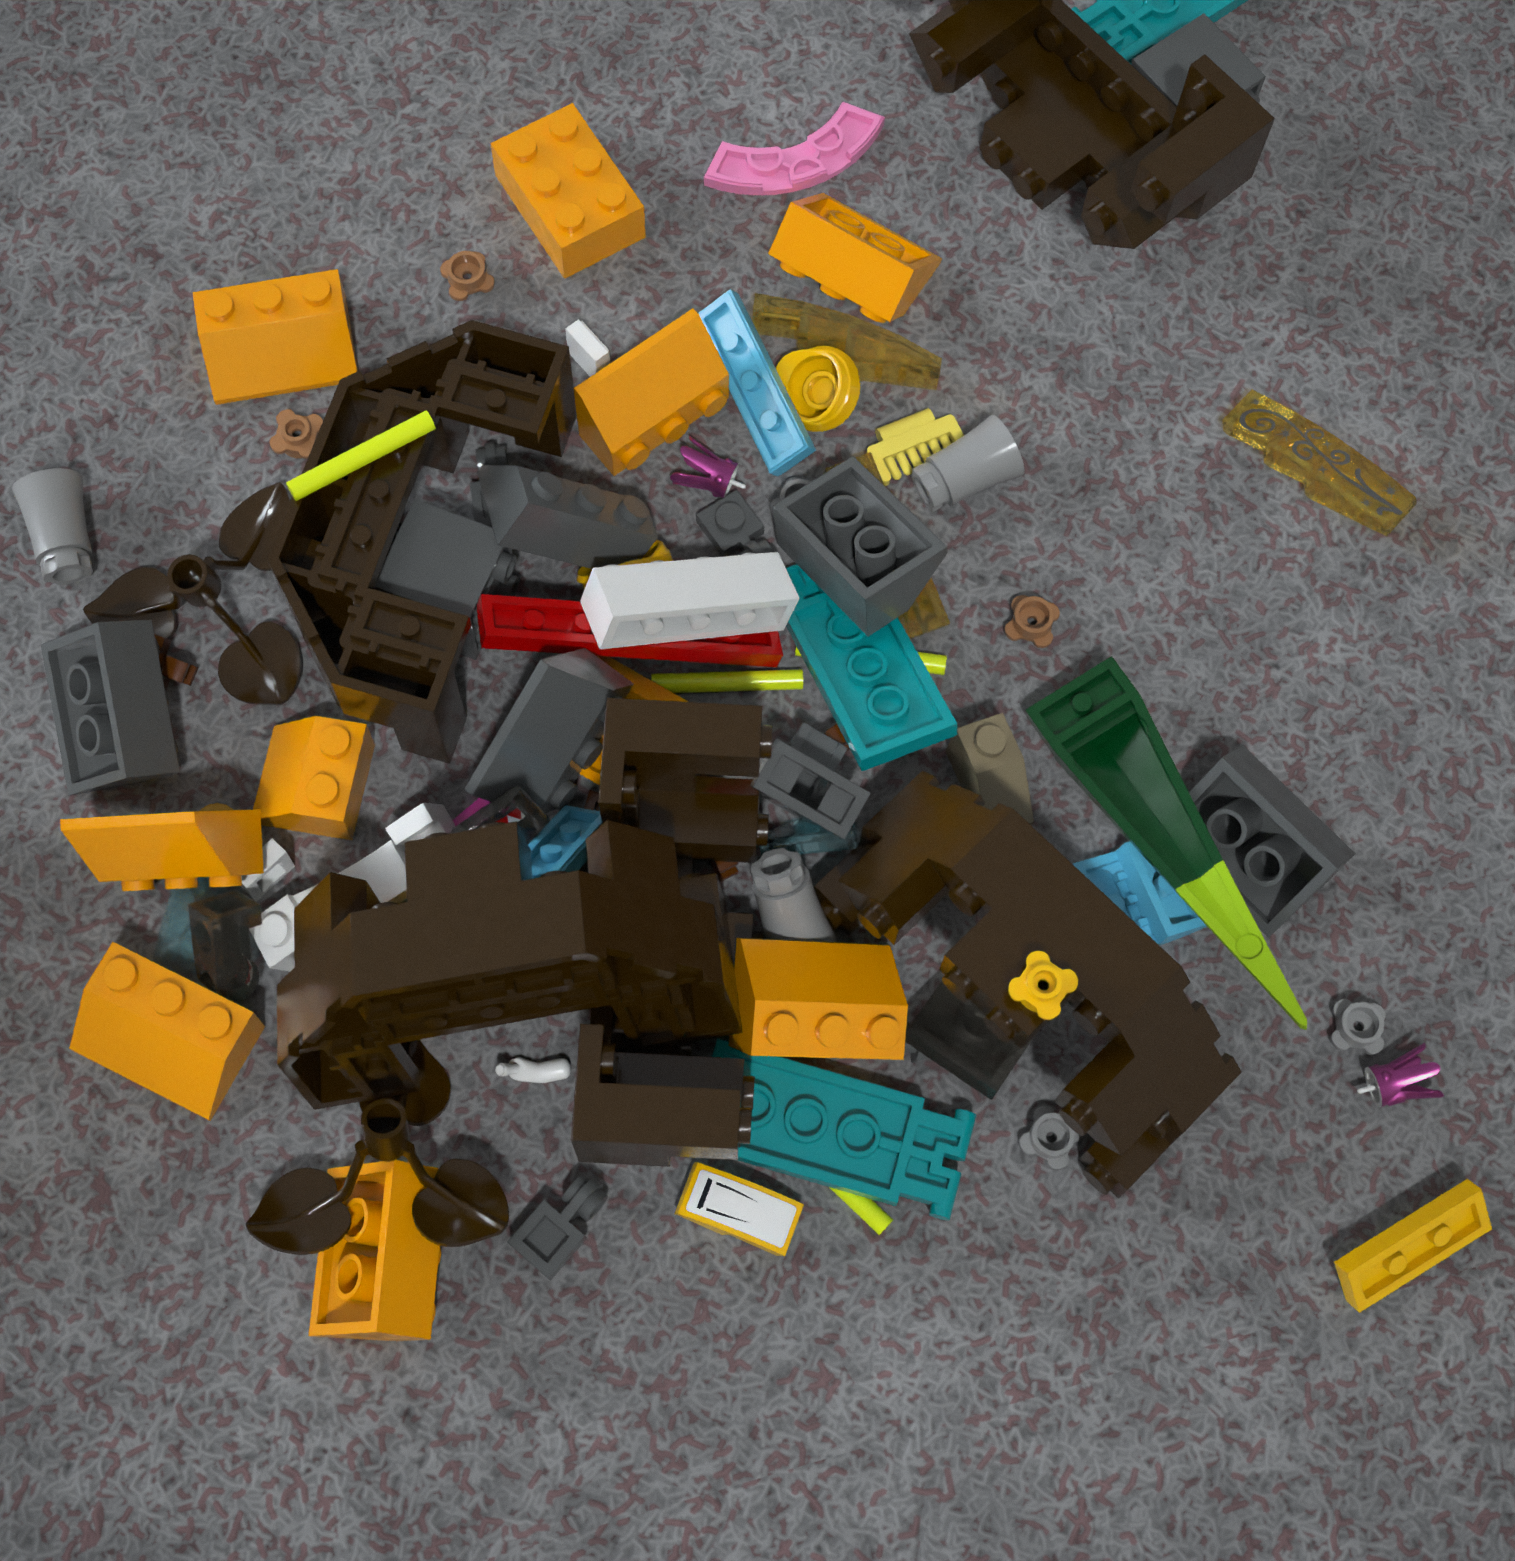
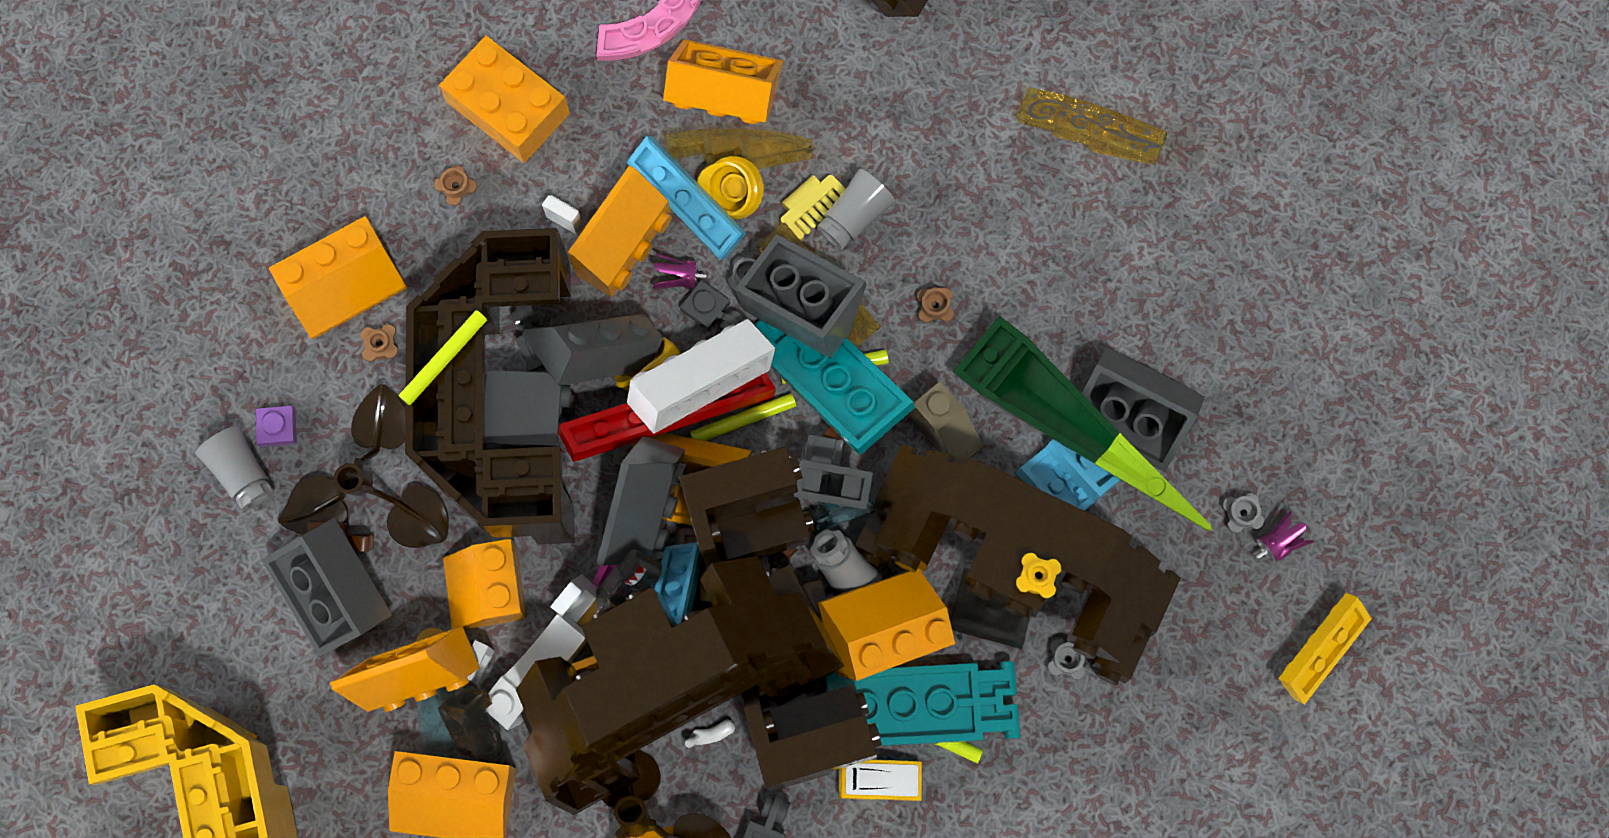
camera: 15 degrees left, 5 degrees up
(128, 493) = (276, 426): none -> medium lavender plate

